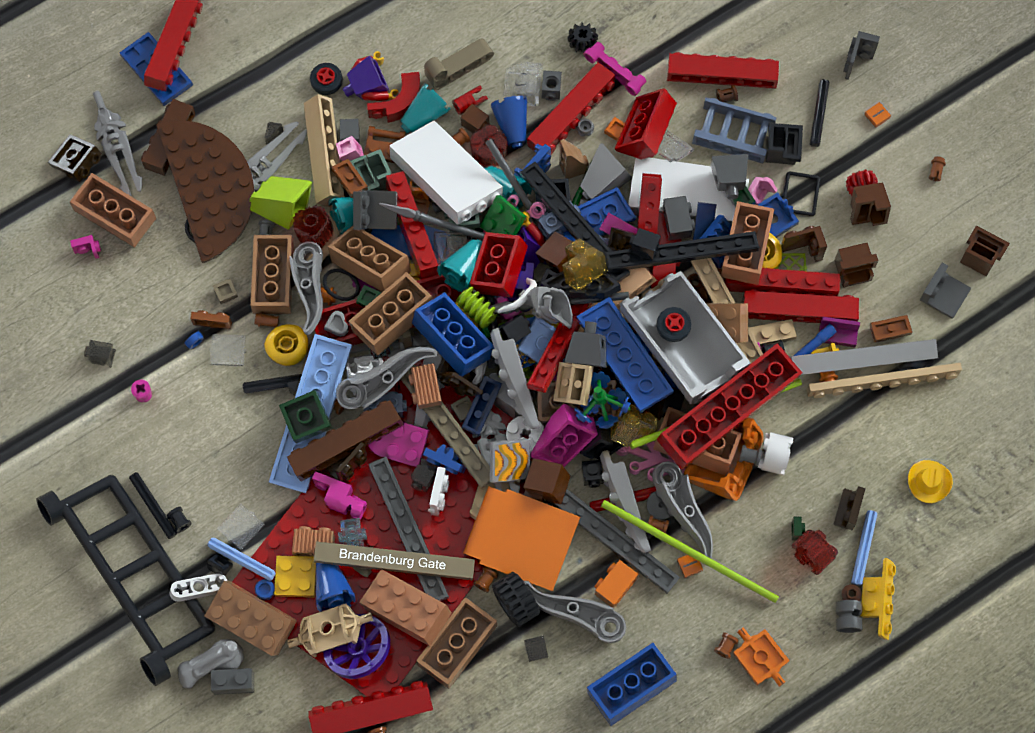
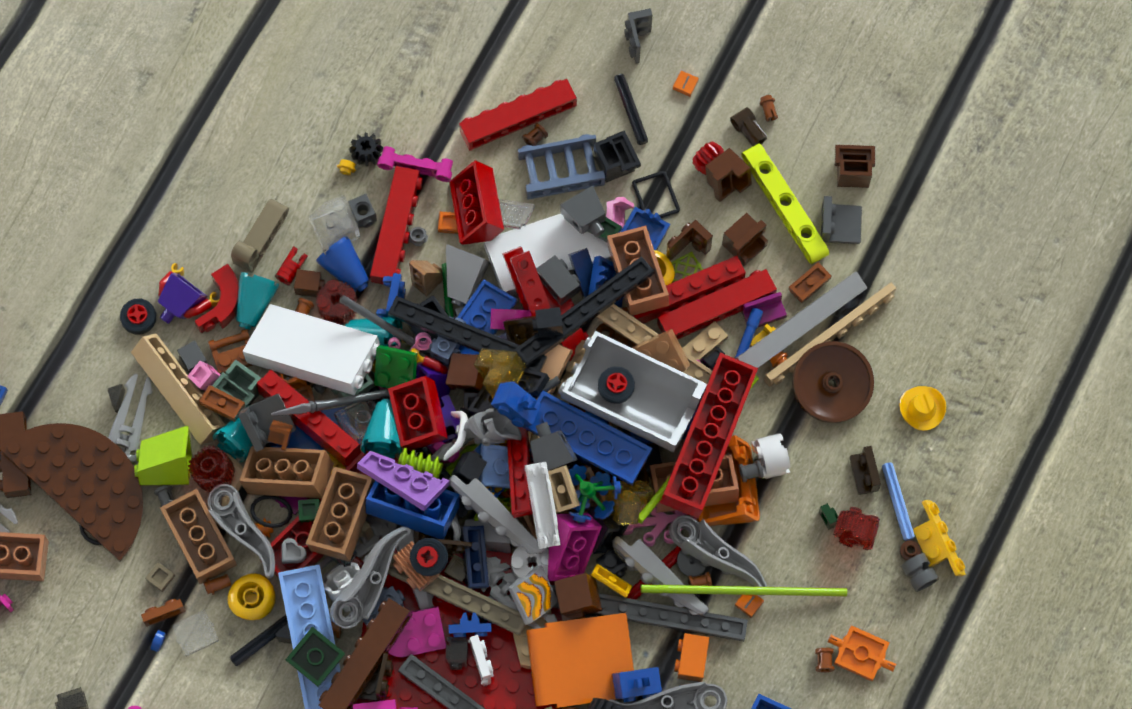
camera: 30 degrees left, 0 degrees up
(381, 225) = (280, 433): none -> dark orange panel
(445, 386) = (435, 560): none -> black wheel
(454, 311) = (410, 484): none -> medium lavender wing
(555, 389) = (542, 505): none -> white piece
(556, 579) = (636, 683): none -> blue brick
(559, 44) = (346, 167): none -> yellow plate
(579, 295) = (516, 404): none -> blue brick
(582, 484) = (611, 580): none -> yellow slope
(880, 412) = (851, 379): none -> reddish brown dish
(906, 265) = (793, 215): none -> neon yellow beam
(910, 171) = (746, 123): none -> dark brown piece

